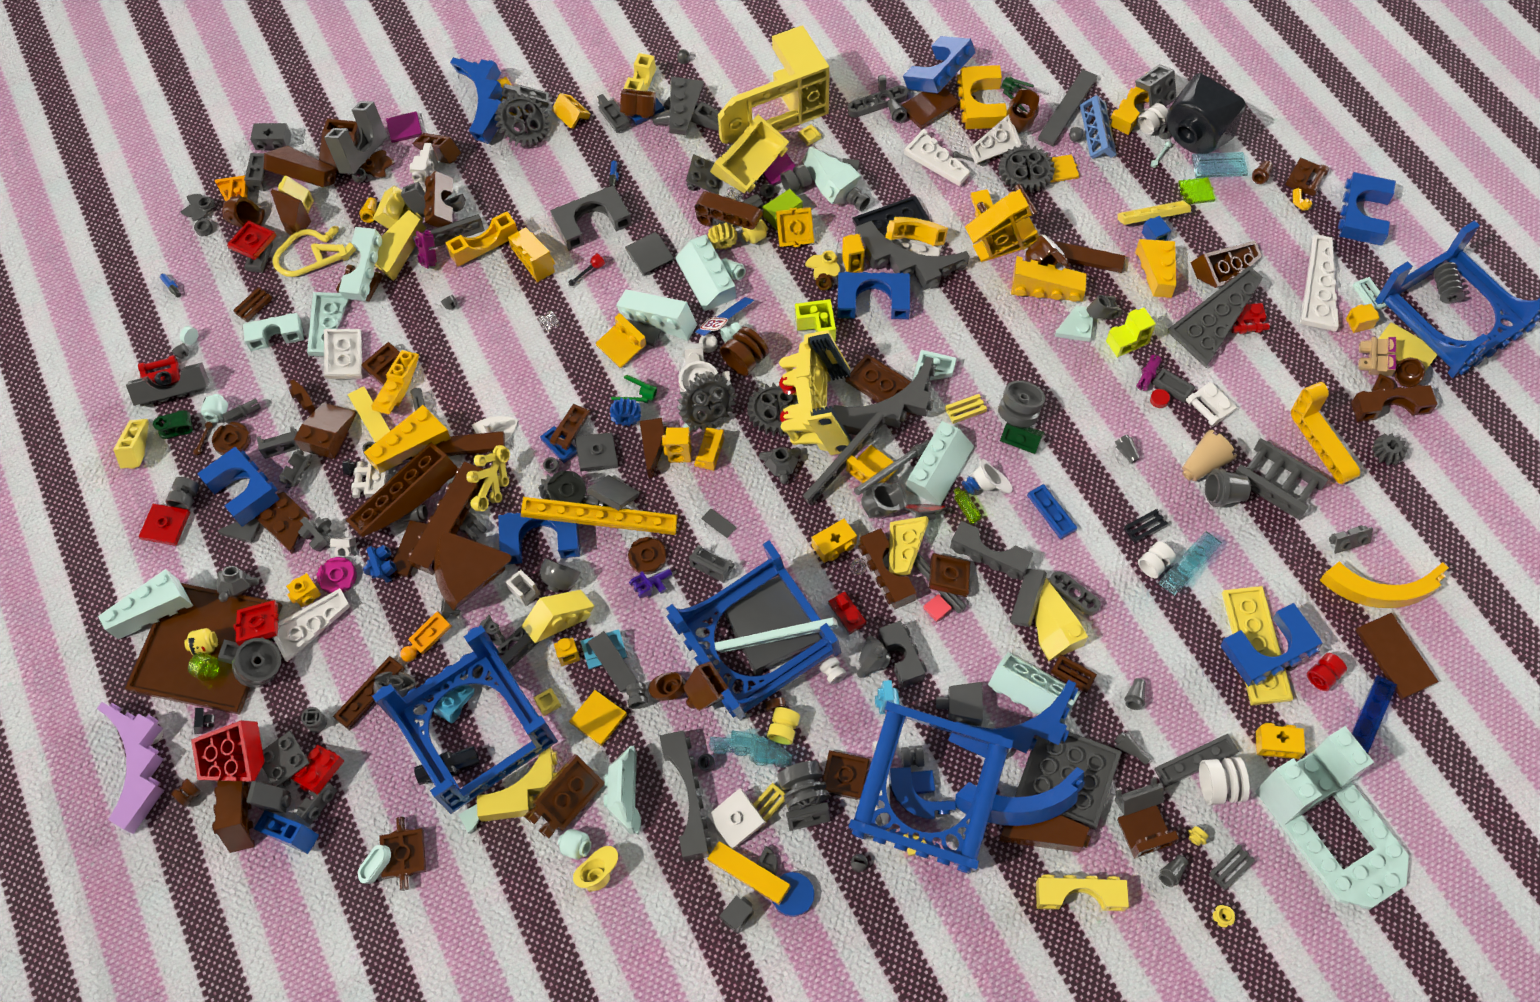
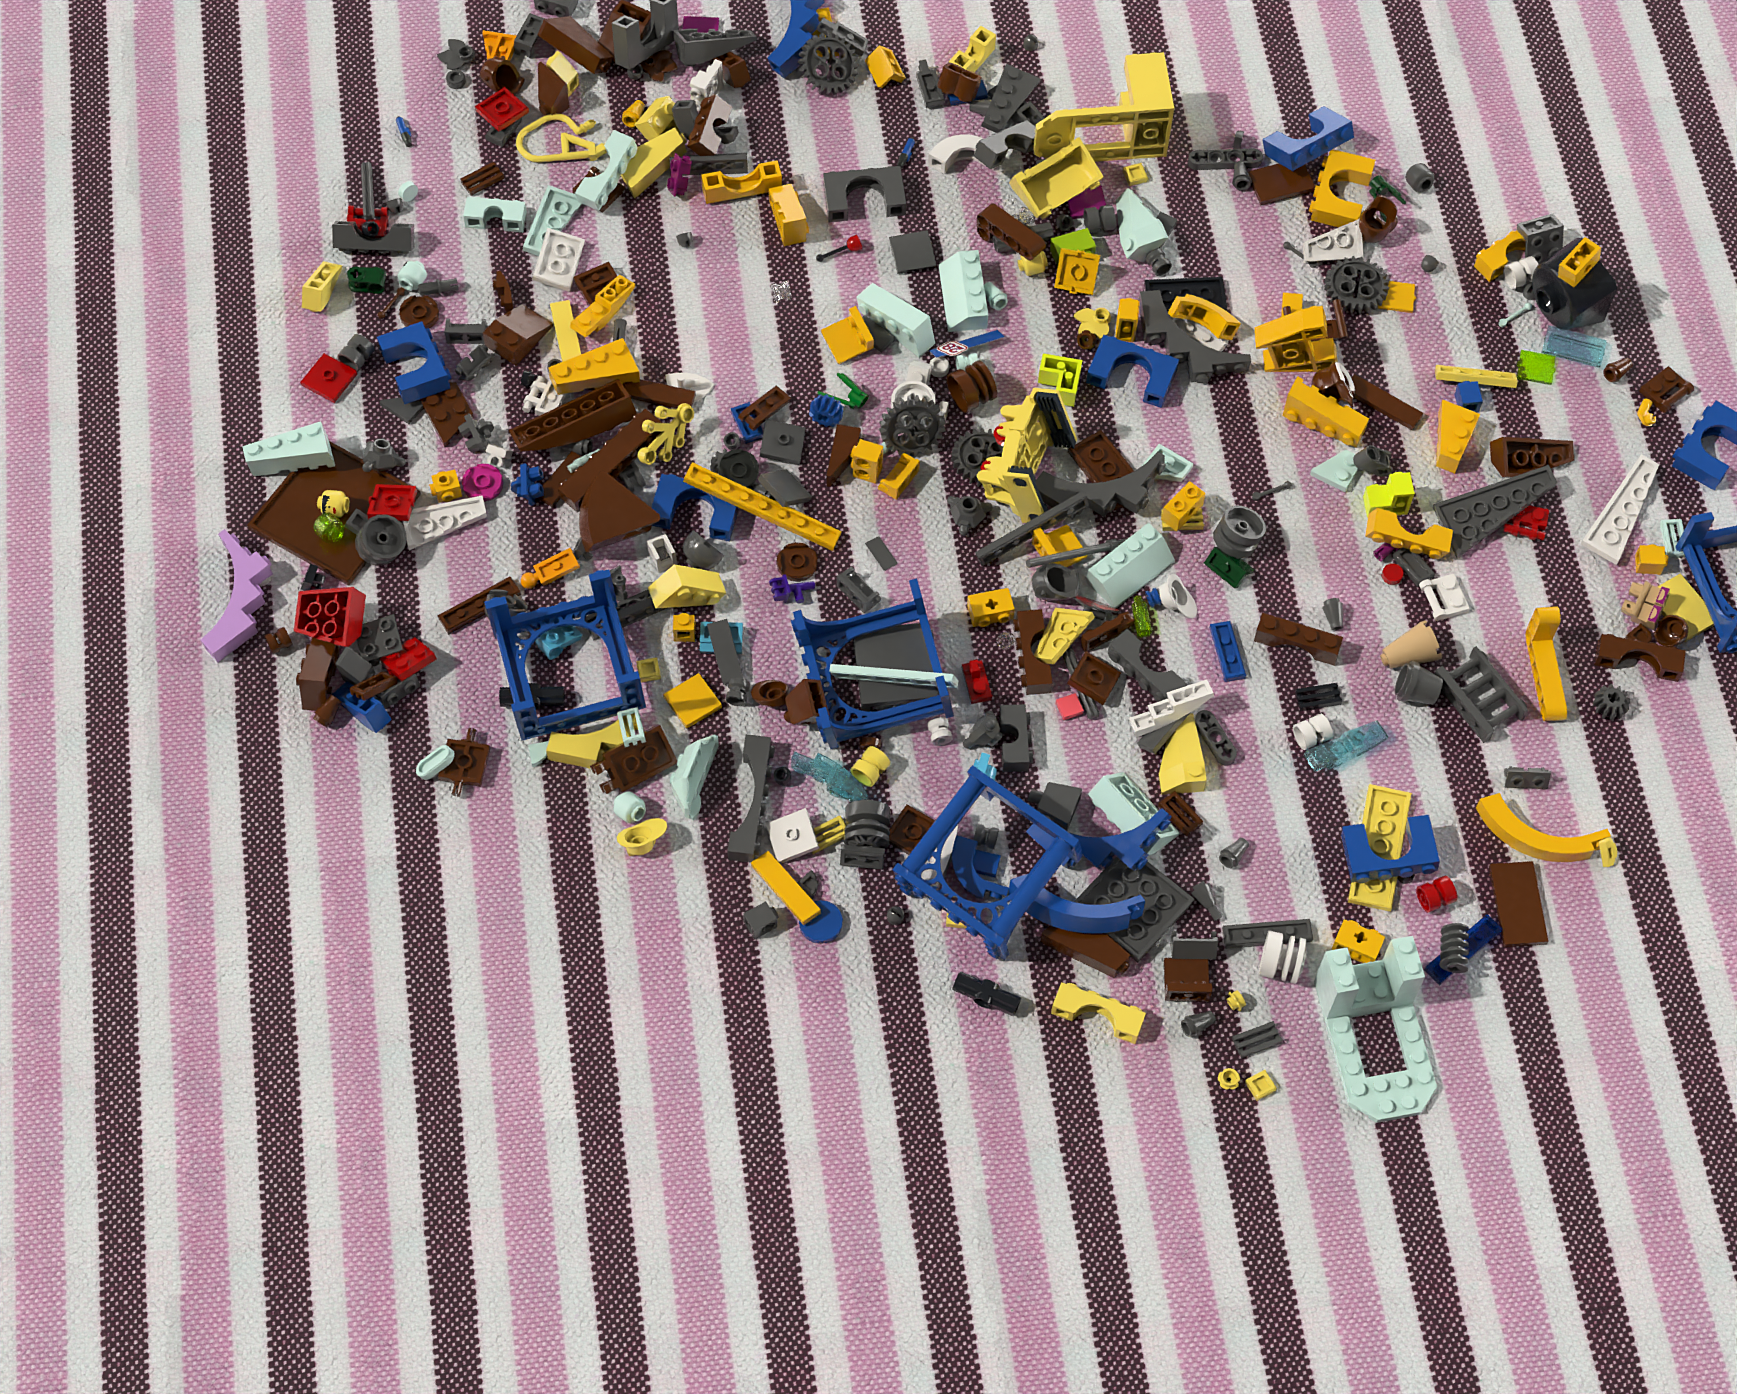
camera: 15 degrees right, 0 degrees up
(151, 346) = (367, 191): none -> dark grey axle
(254, 848) = (326, 712): none -> reddish brown cone
(291, 808) = (373, 685): none -> reddish brown tile
(317, 723) = (418, 612): dark grey wheel -> none
(409, 138) = (700, 47): none -> dark grey wedge
(421, 527) = (580, 461): none -> light aqua animal
(557, 777) = (633, 738): none -> light aqua tile
(660, 155) = (952, 150): none -> white arch
(688, 146) = (994, 148): none -> dark grey arch
(700, 175) = (997, 185): dark grey hinge -> none
(722, 236) = (996, 257): light yellow gear -> none
(931, 155) = (1261, 241): white wing -> none
(942, 528) = (1106, 632): none -> reddish brown hinge
(964, 397) = (1183, 506): none -> yellow brick
(973, 912) = (986, 993): none -> black piece
(1018, 368) = (1256, 496): none -> dark grey hinge
(1031, 579) = (1178, 704): none -> white slope
(1039, 69) = (1420, 177): none -> dark grey head
(1067, 107) = (1434, 230): dark grey tile -> none
(1101, 124) = (1462, 262): medium blue fence -> none
(1129, 479) = (1279, 631): none -> reddish brown arch
(1143, 360) = (1385, 527): none -> yellow arch
(1211, 90) = (1579, 262): none -> yellow brick
(1253, 911) = (1260, 1085): none -> light yellow tile
(1367, 719) = (1453, 947): none -> dark grey piece
(1450, 582) = (1608, 852): none -> light yellow piece

